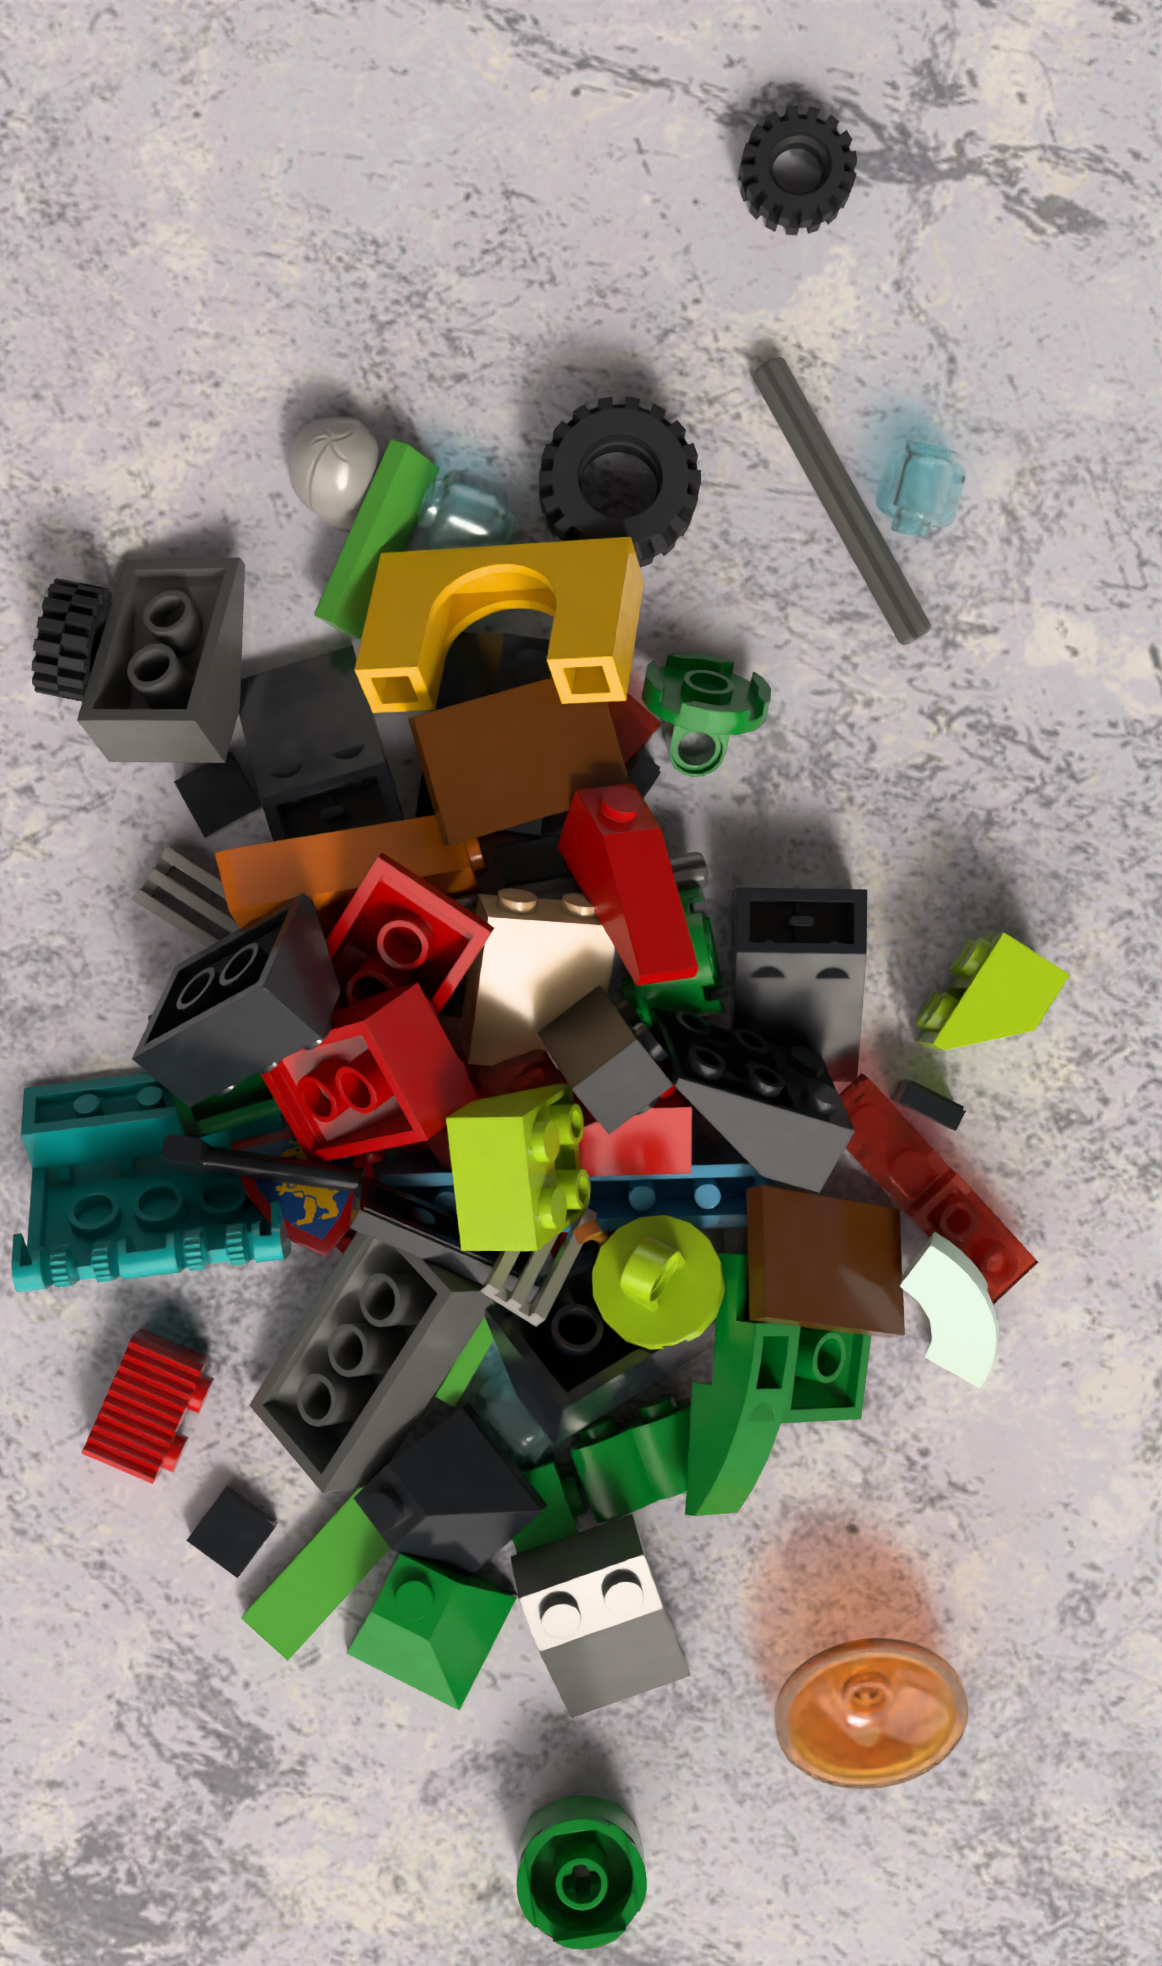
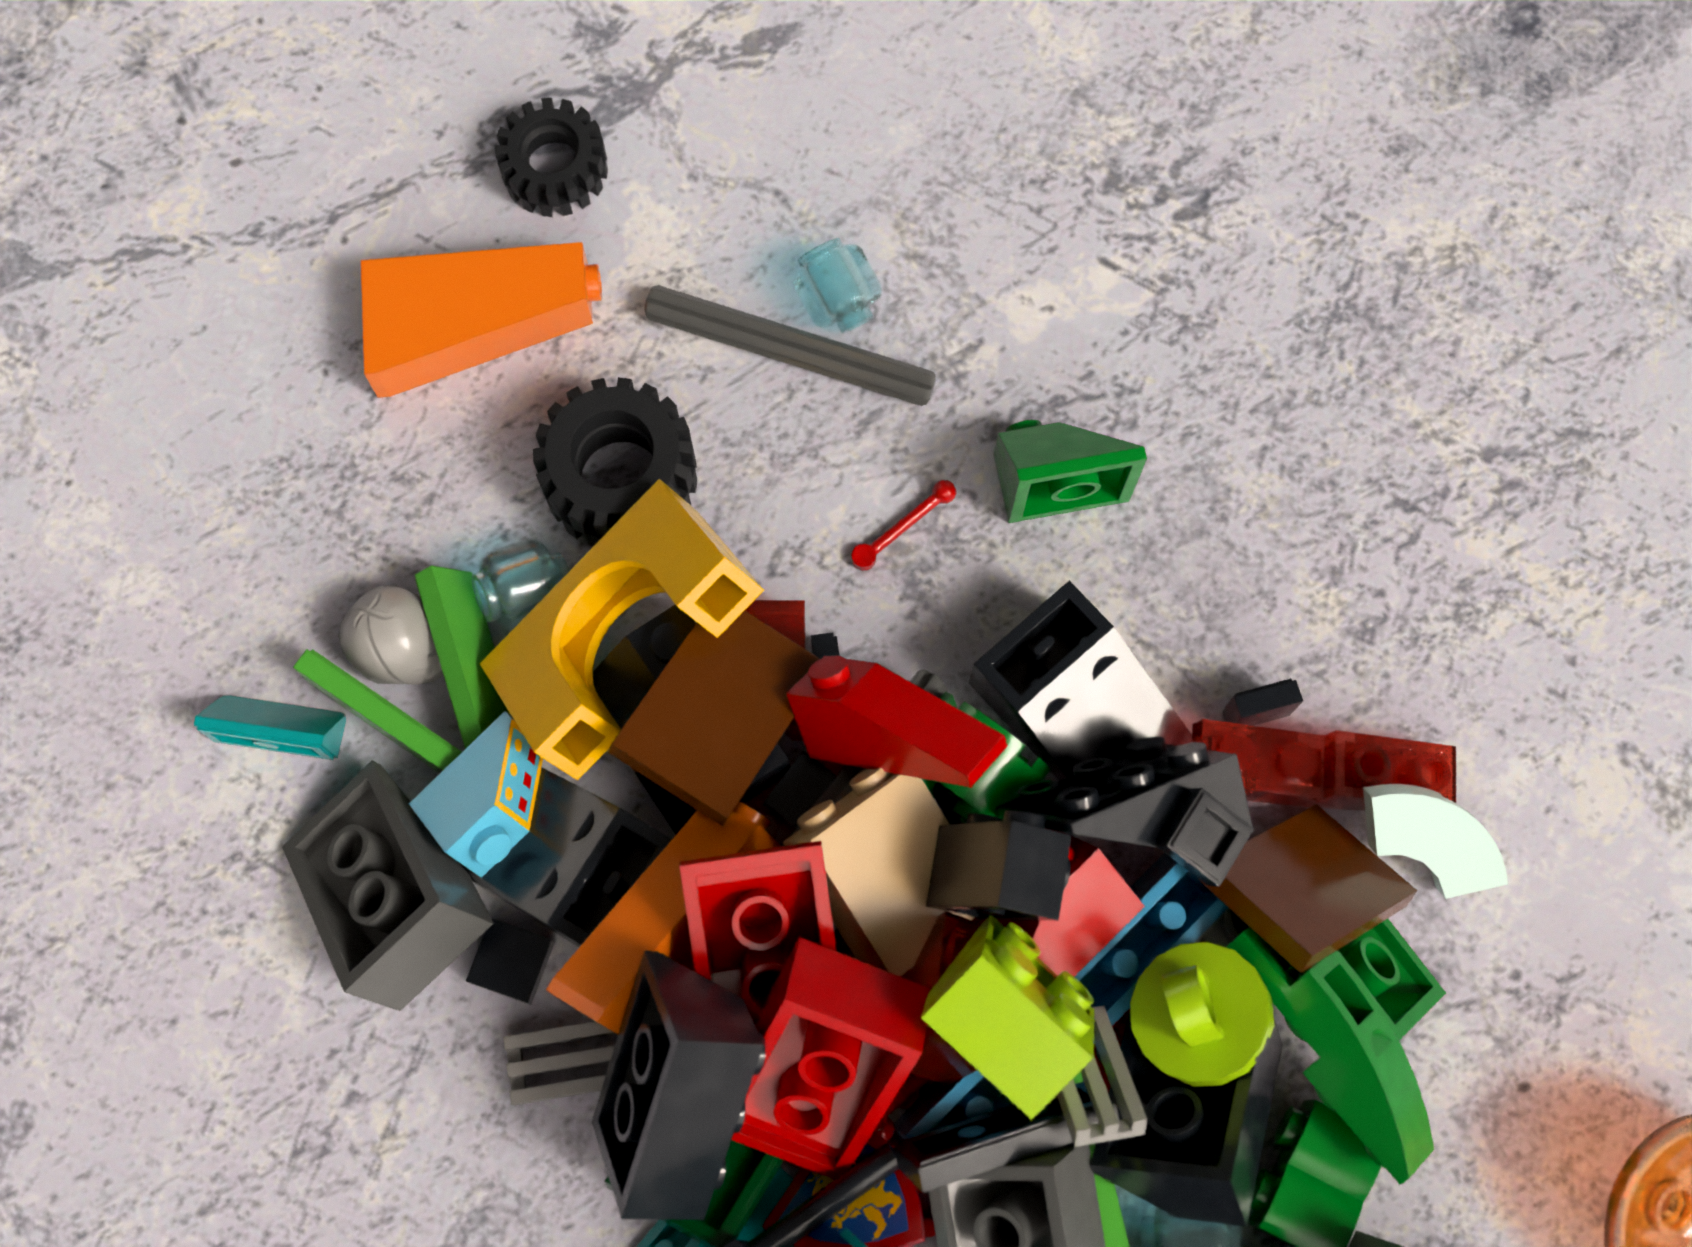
camera: 45 degrees left, 15 degrees down
(69, 637) = (285, 938): black tyre -> none
(194, 459) = (273, 726): none -> teal slope
(278, 529) = (376, 711): none -> bright green tile
(294, 662) = (483, 797): none -> medium azure slope
(591, 1231) = (1116, 1020): dark orange hinge -> none
(617, 245) = (468, 308): none -> orange slope
(703, 696) = (820, 560): green tile -> none
(772, 1168) = (1205, 837): none -> black tile
(850, 726) = (864, 555): none -> red hinge
(950, 791) = (1063, 469): none -> green slope
(995, 994) = (1228, 575): lime slope -> none

